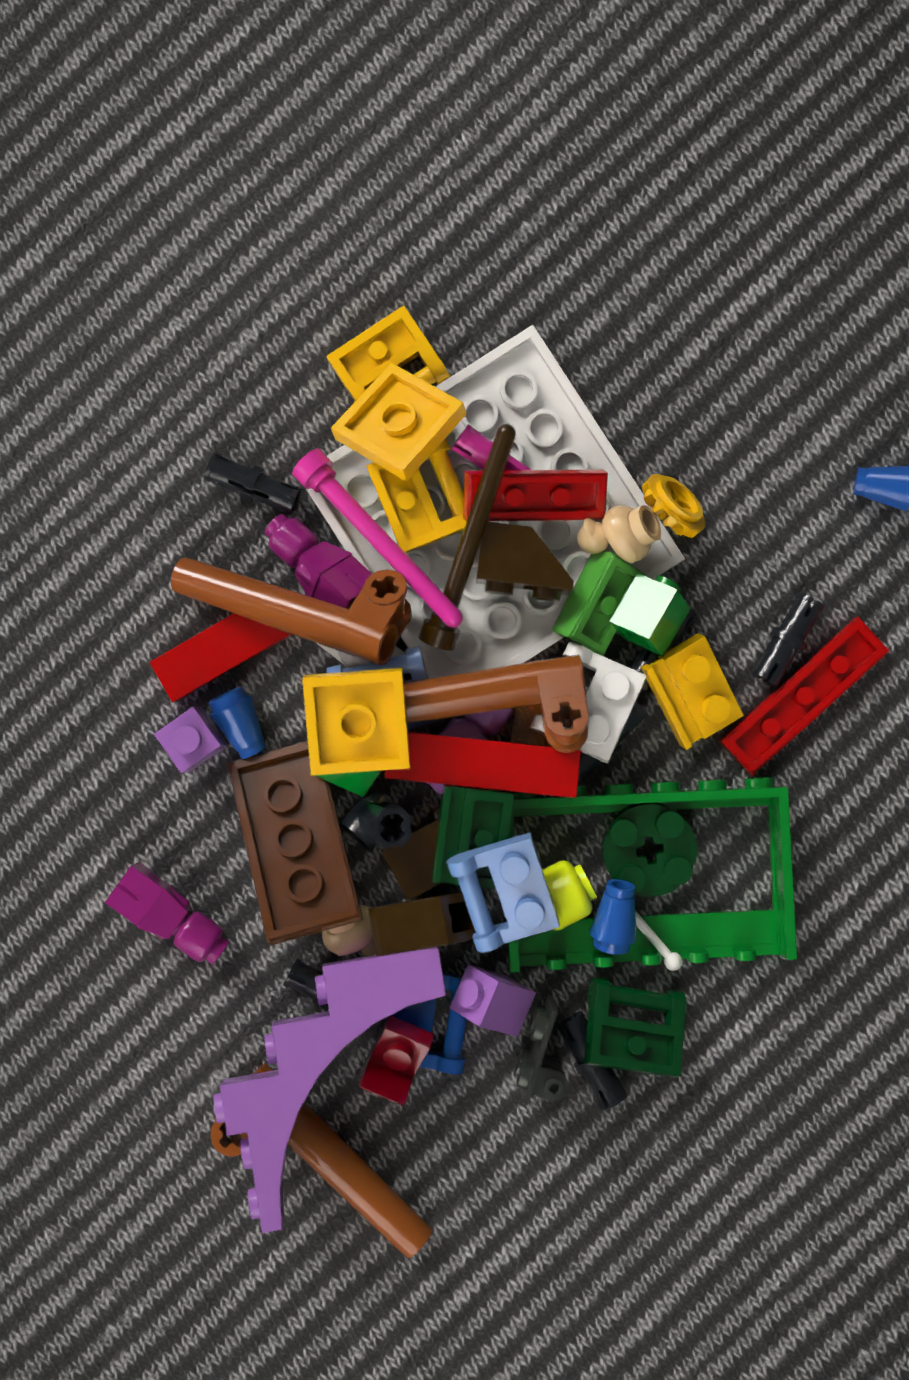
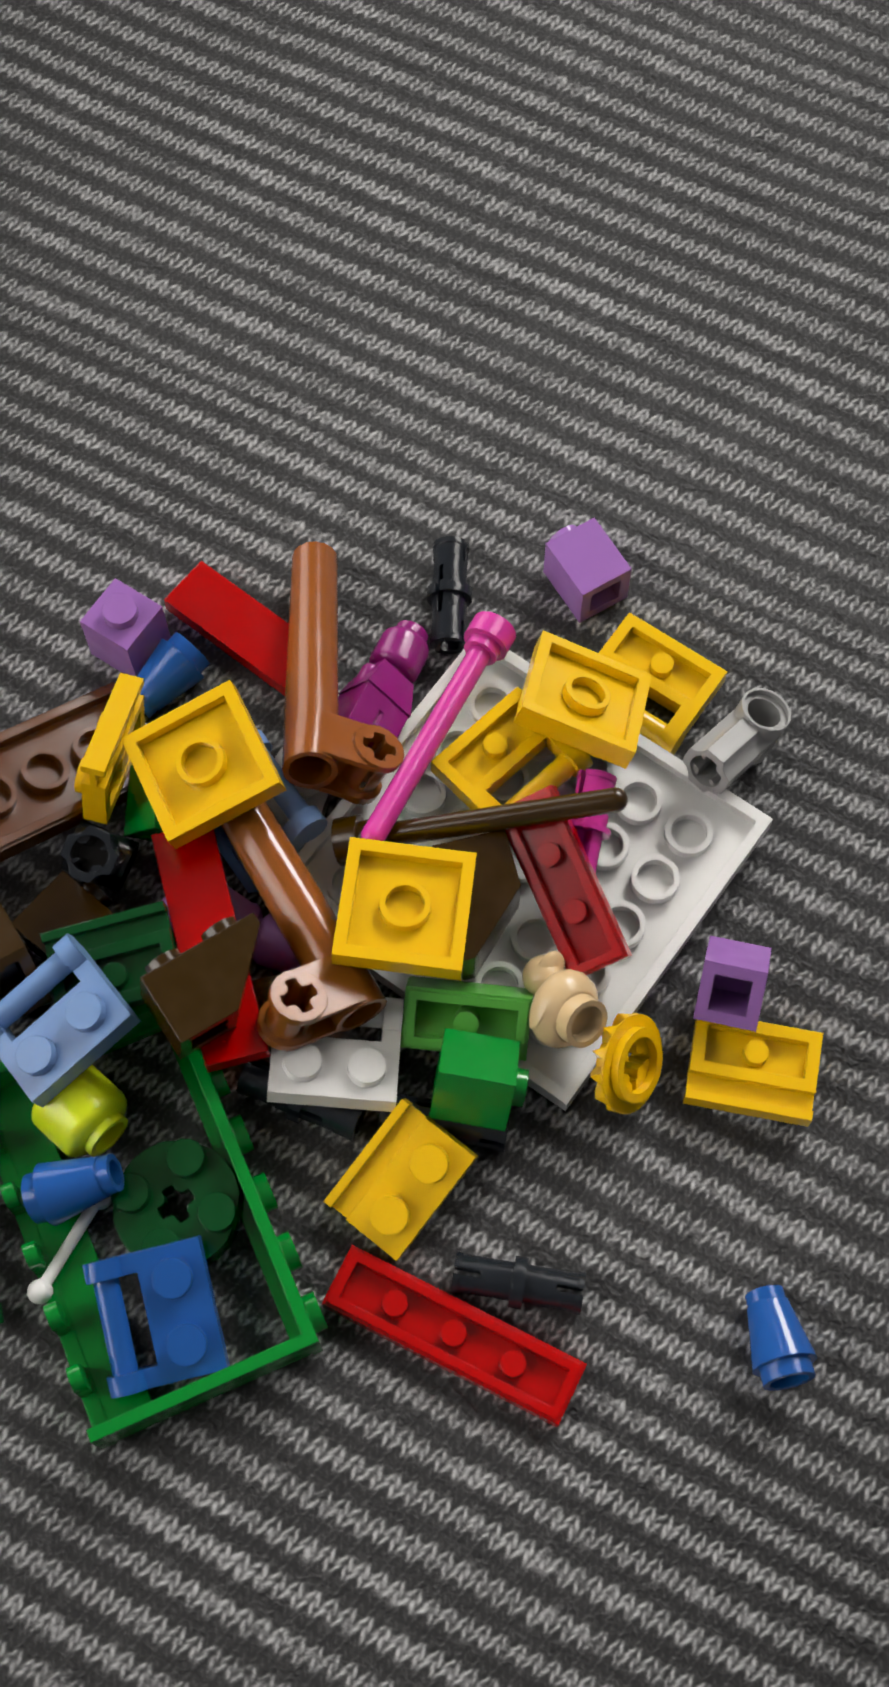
camera: 75 degrees right, 20 degrees down
(273, 372) = (586, 569): none -> medium lavender brick
(288, 775) = (106, 760): none -> yellow plate
(467, 322) = (738, 740): none -> light grey piece
(526, 616) = (404, 908): none -> yellow plate
(529, 777) = (202, 989): none -> dark brown slope
(647, 407) = (732, 983): none -> medium lavender brick
(705, 420) = (753, 1072): none -> yellow plate
(728, 873) = (178, 1312): none -> blue plate

